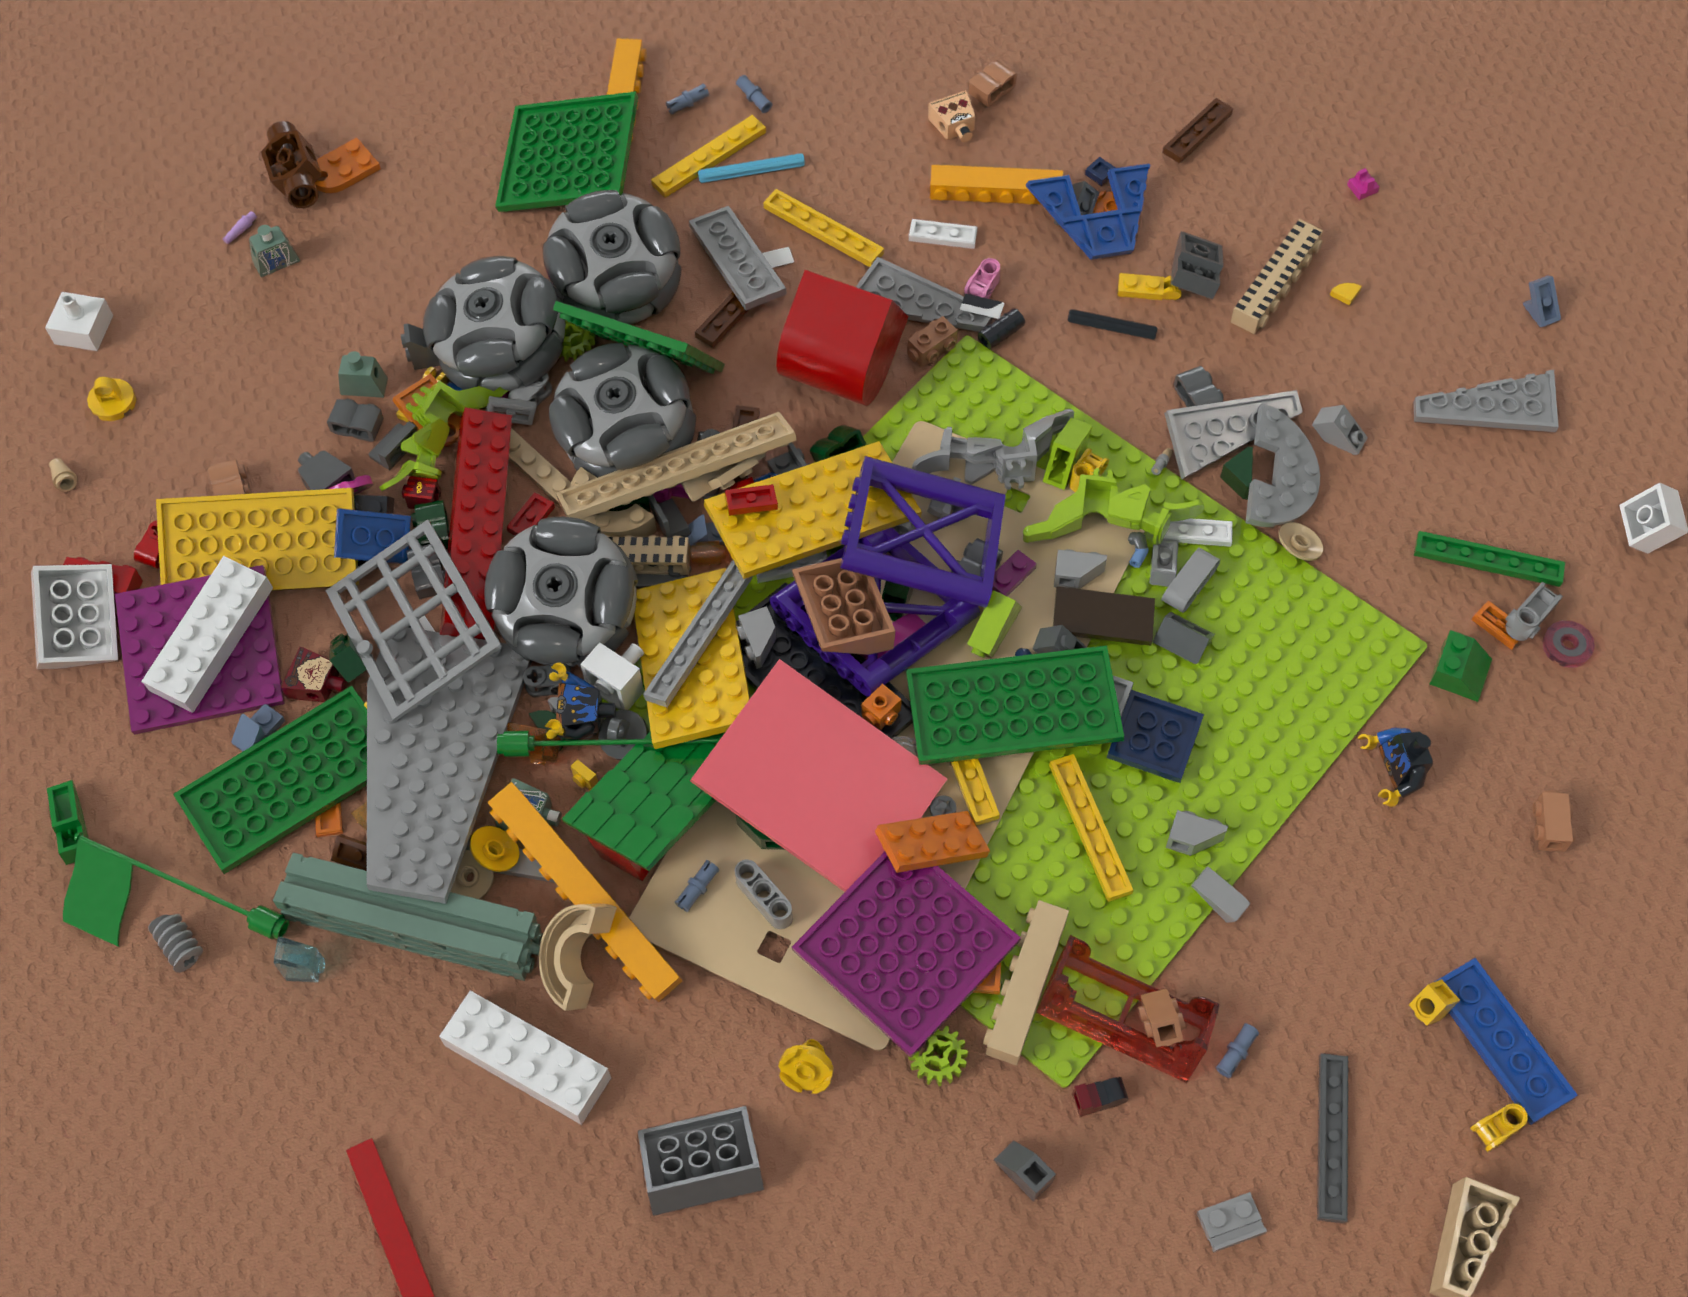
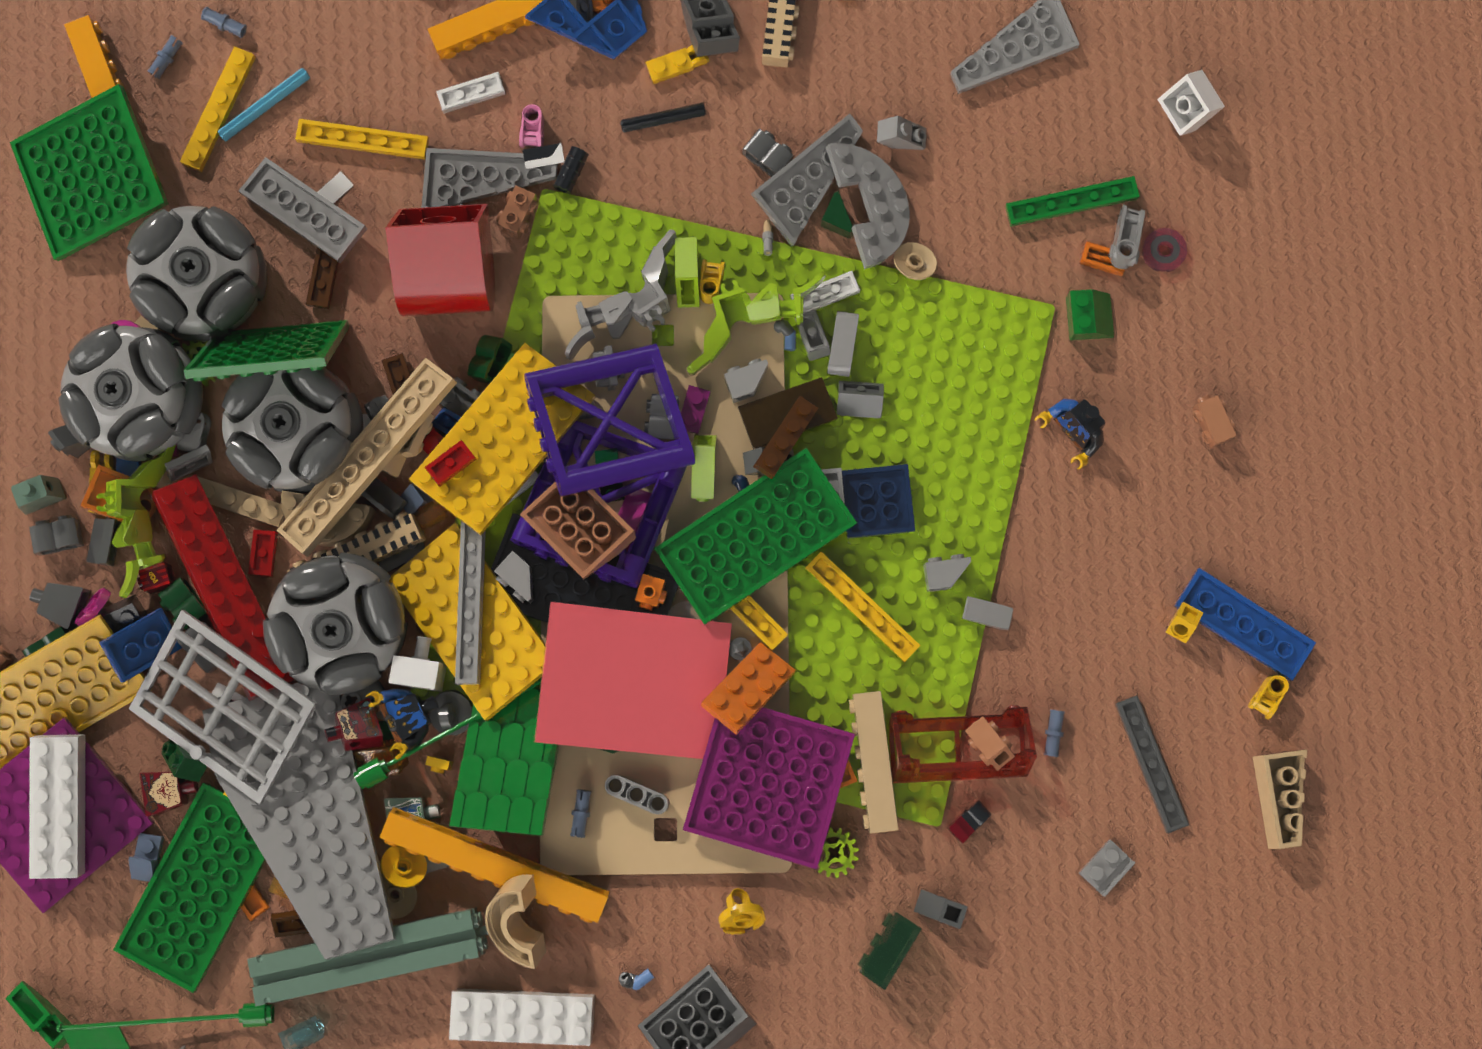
camera: 25 degrees left, 20 degrees up
(525, 697) = (356, 727): none -> torso
(658, 1083) = (634, 981): none -> arm
(947, 1181) = (888, 949): none -> clear green slope
(1090, 628) = (785, 437): none -> reddish brown plate

